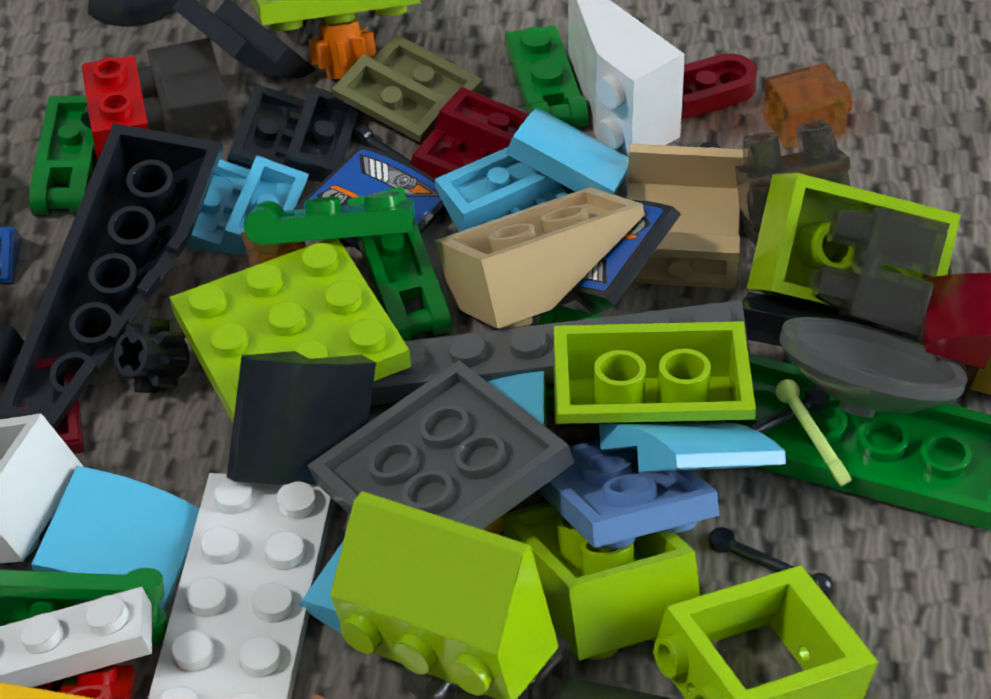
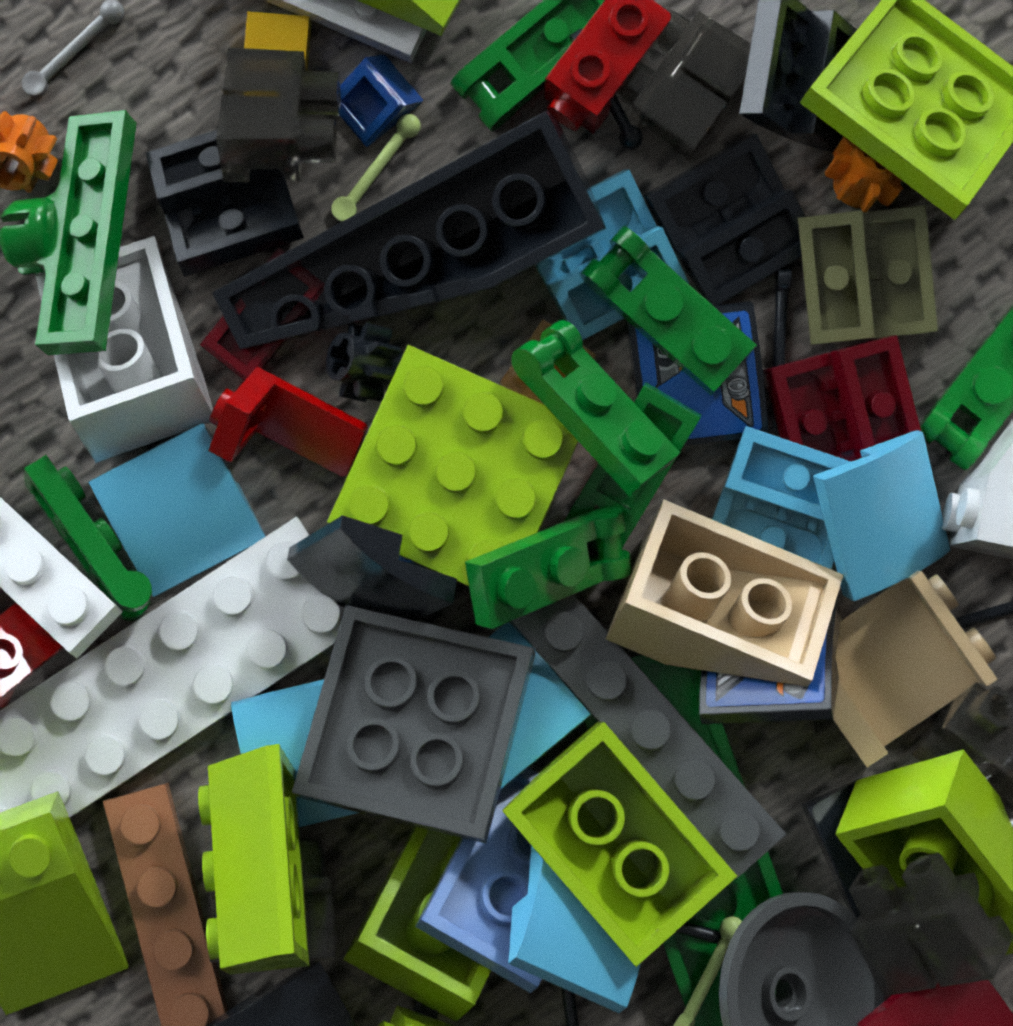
camera: 50 degrees right, 40 degrees up
(28, 253) = (345, 207): none -> yellowish green hinge
(142, 426) = (287, 417): none -> red bracket
(311, 174) = (669, 312): none -> green plate
(411, 311) = (547, 567): none -> green plate

